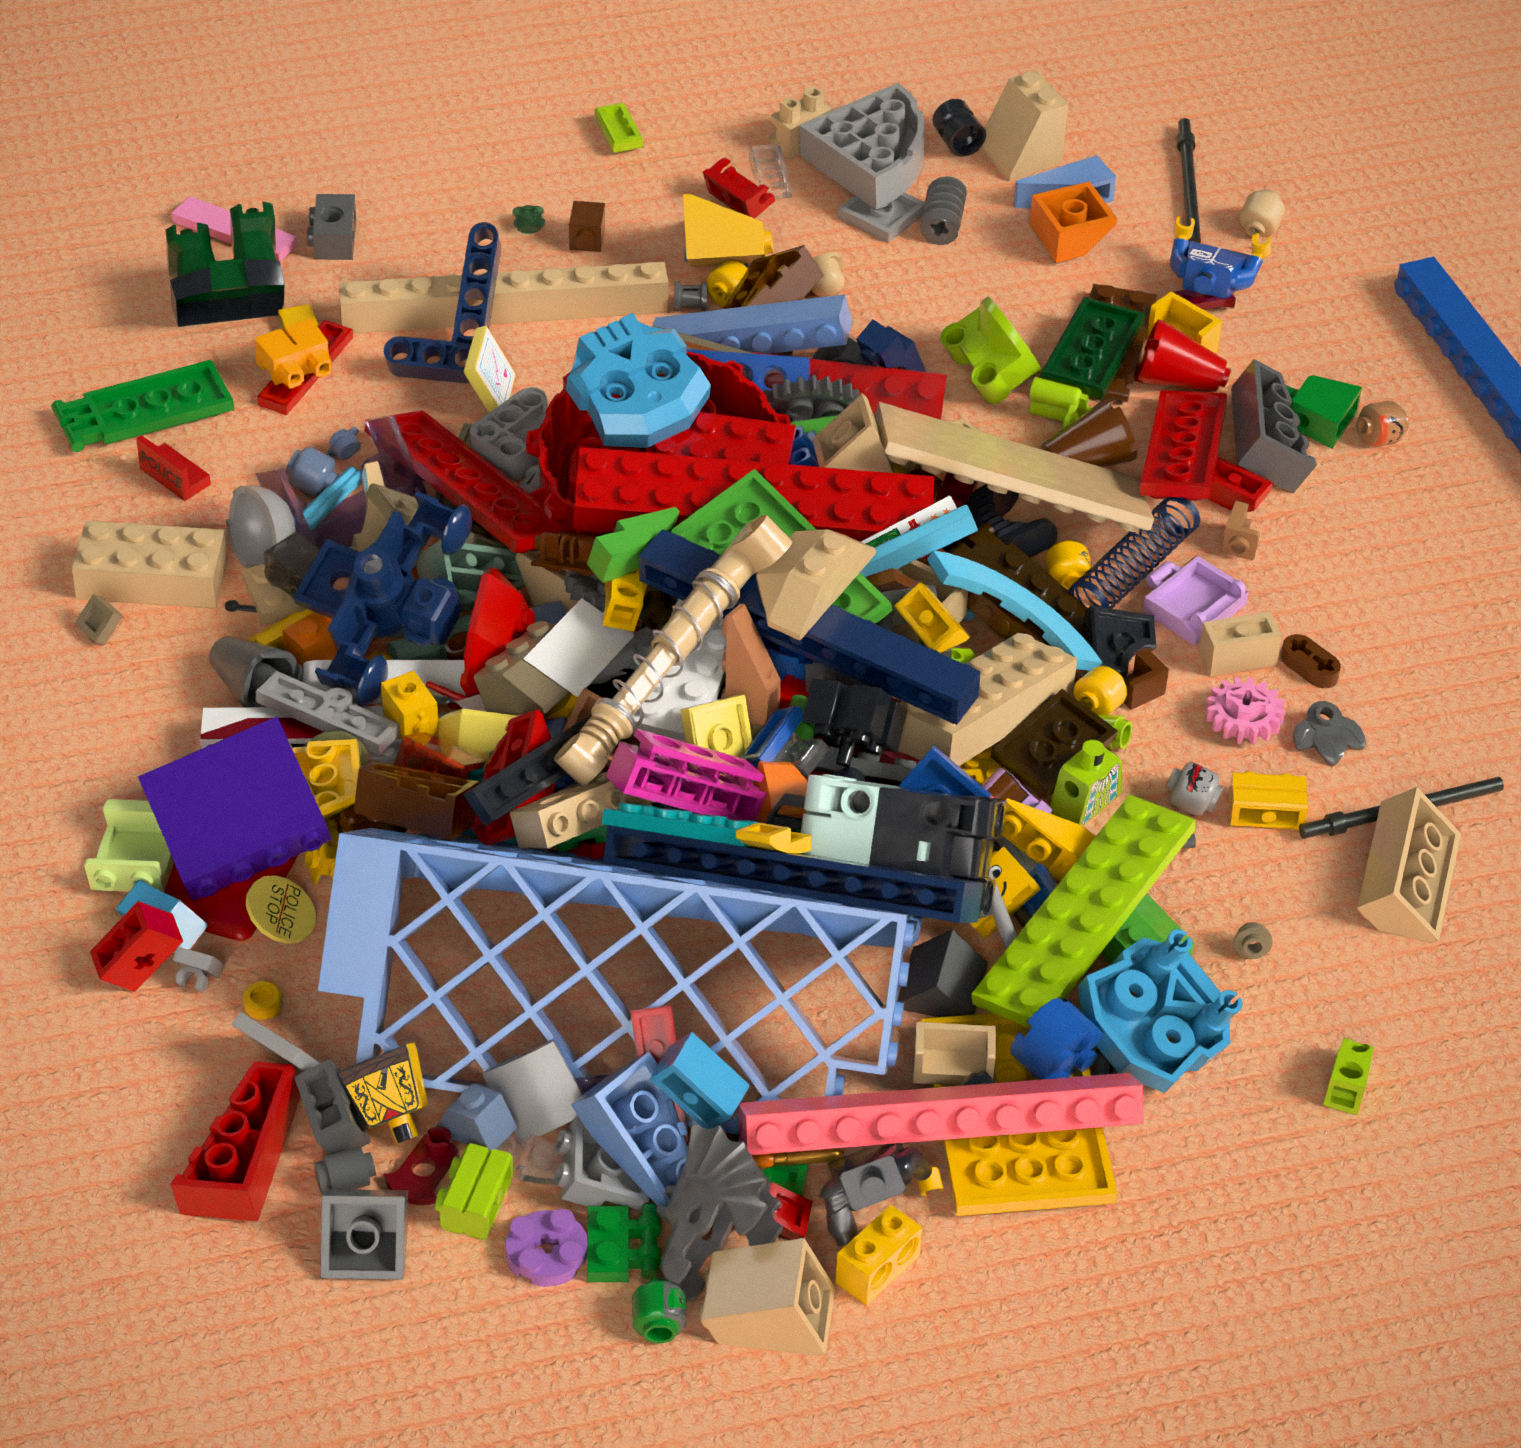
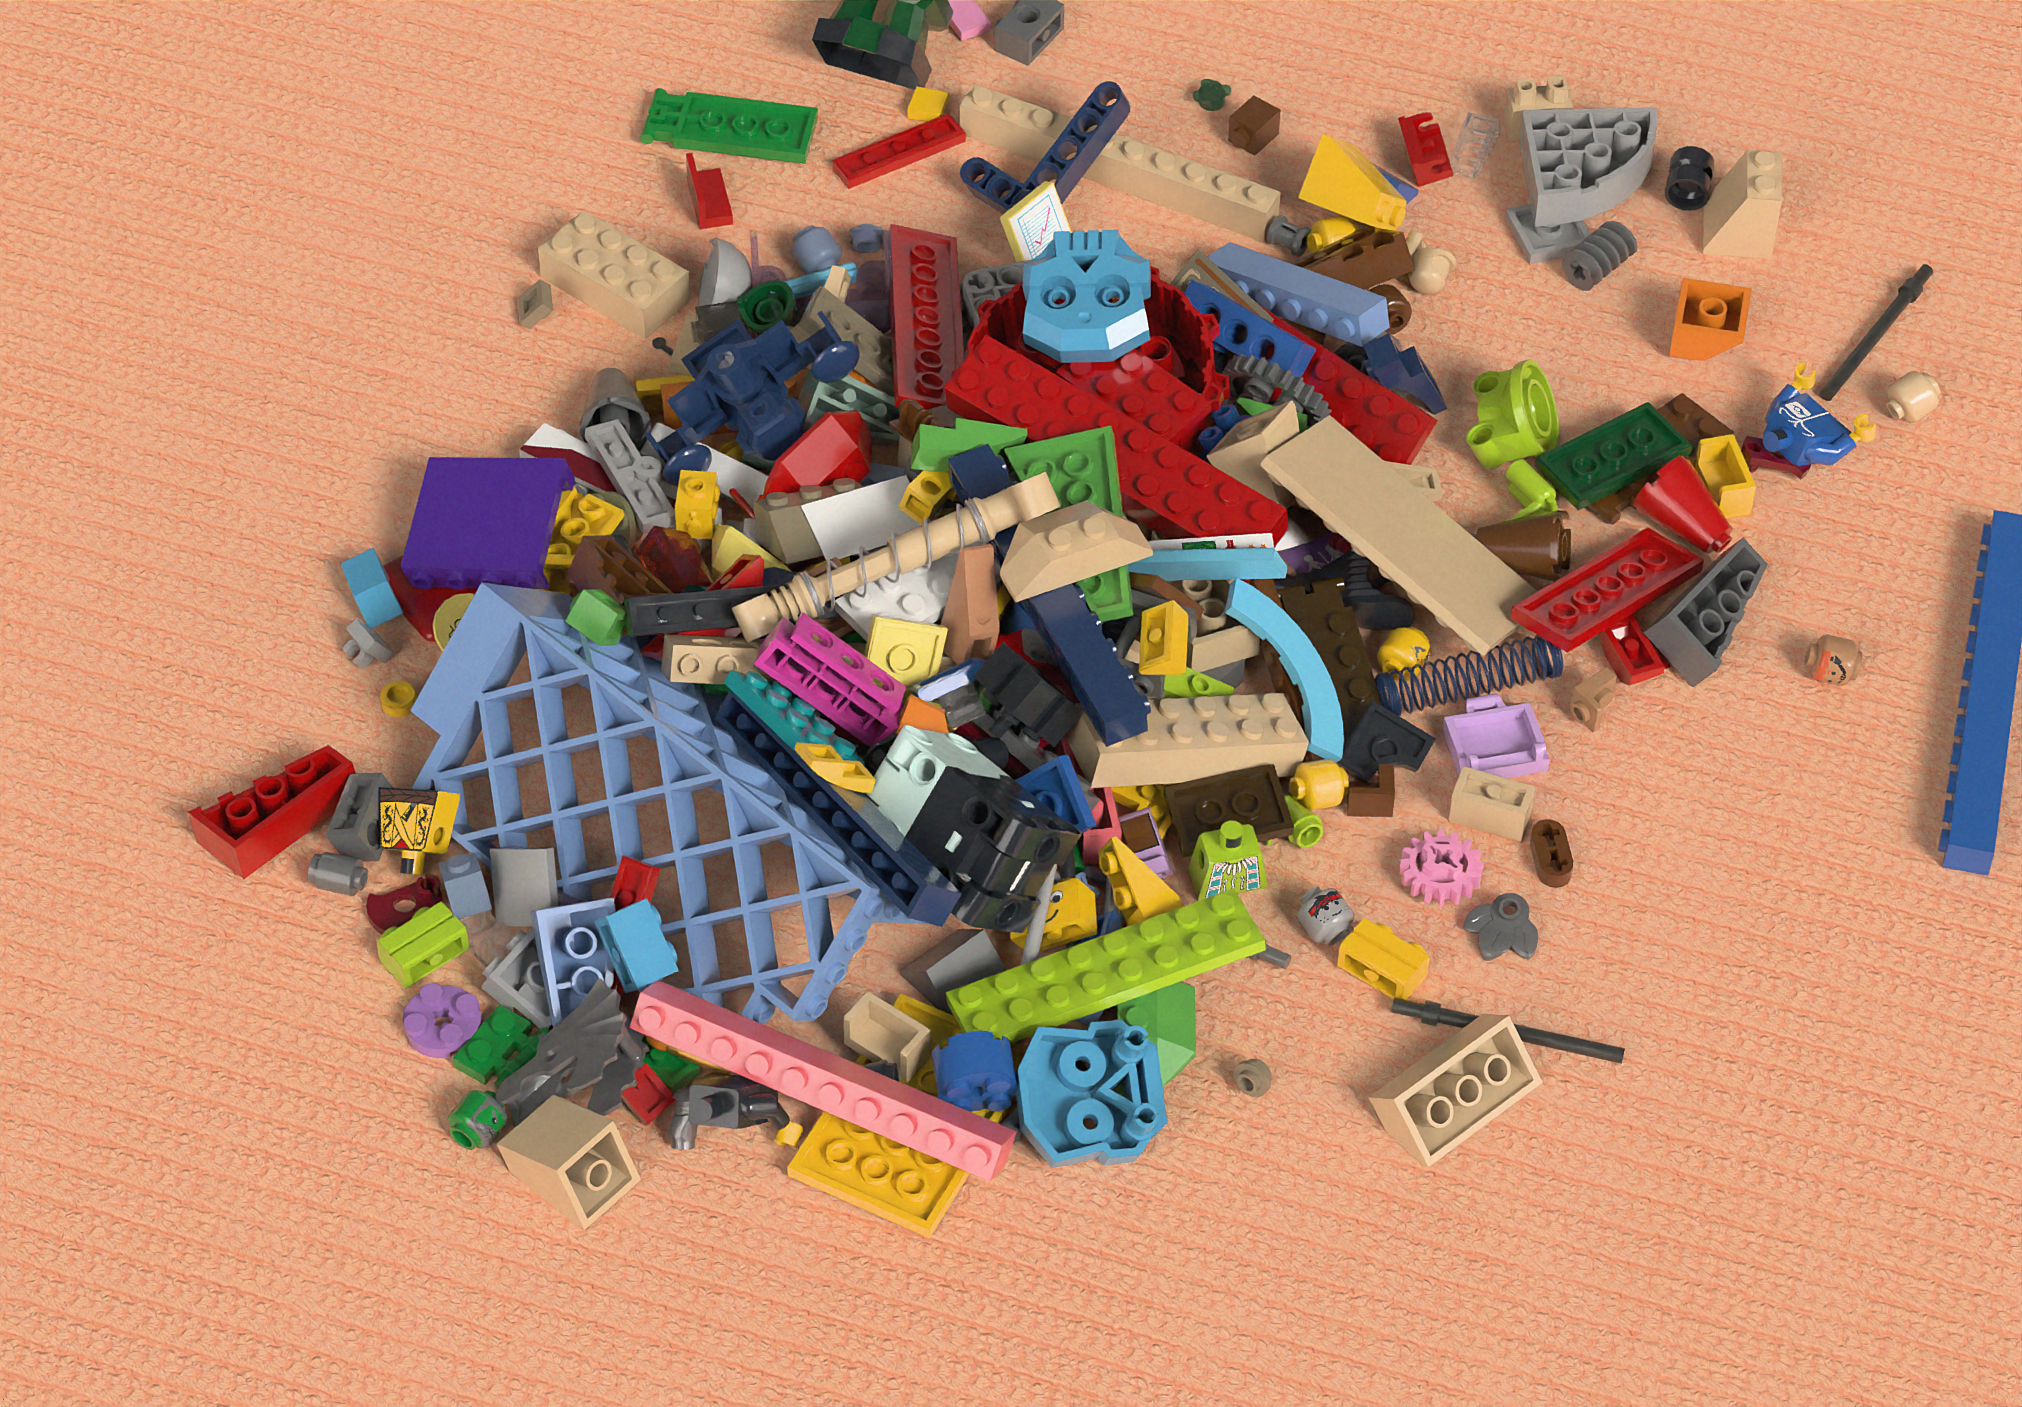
camera: 35 degrees right, 5 degrees up
(130, 849) = (389, 521): yellowish green panel -> none
(136, 946) = (323, 602): red brick -> none
(274, 1043) = (363, 741): light grey tile -> none
(293, 353) = (877, 141): light orange hips -> none
(335, 521) = (764, 309): none -> dark green helmet
(364, 1233) = (310, 931): dark grey slope -> none
(442, 822) = (597, 617): none -> bright green brick
(618, 127) = (1370, 39): lime plate -> none
(878, 1254) = (688, 1171): yellow brick -> none
(1078, 172) = (1769, 282): medium blue slope -> none
(1324, 408) = (1789, 617): green torso -> none
(1349, 1077) = (1226, 1239): lime leg -> none

